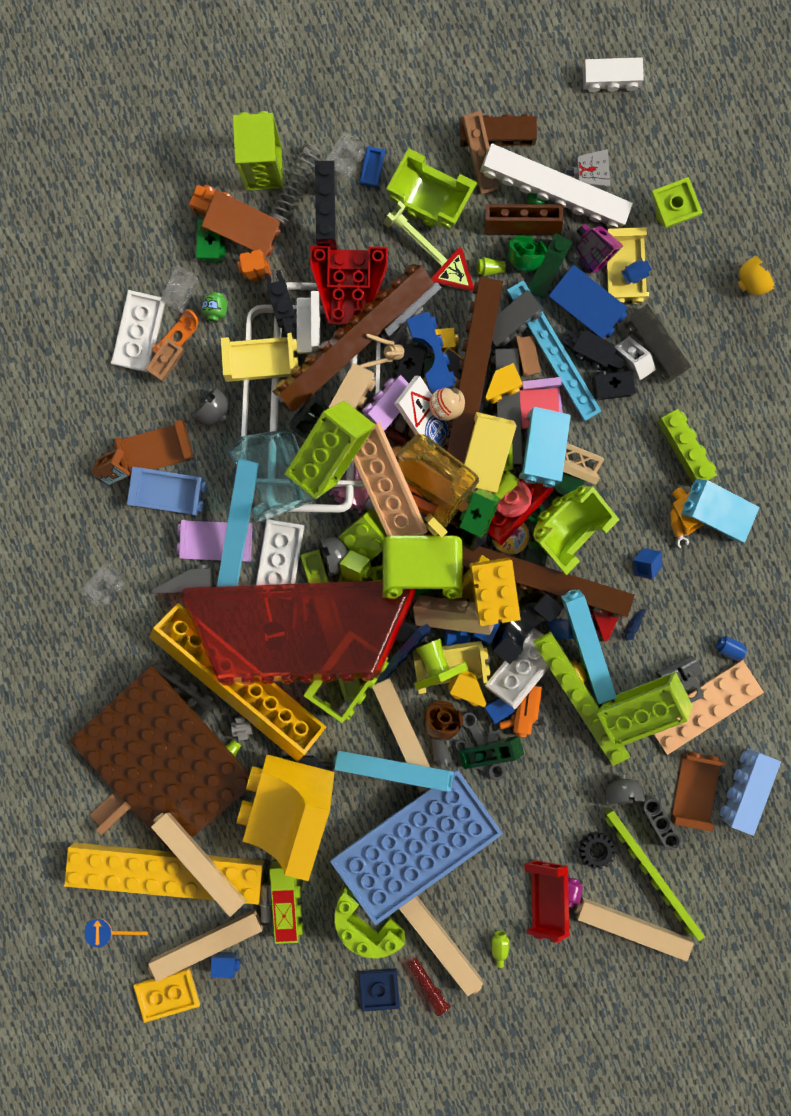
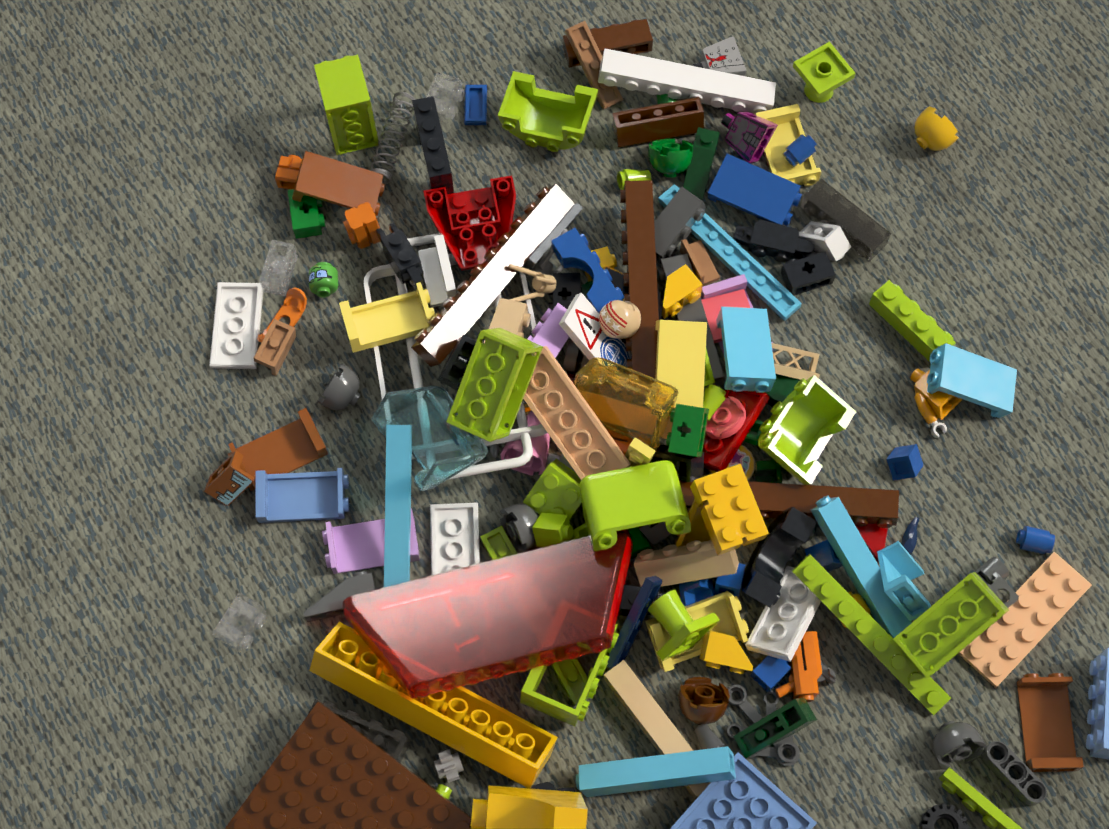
camera: 15 degrees left, 20 degrees down
(453, 271) = (591, 191): yellowish green piece -> none
(614, 650) = (897, 572): none -> medium azure panel

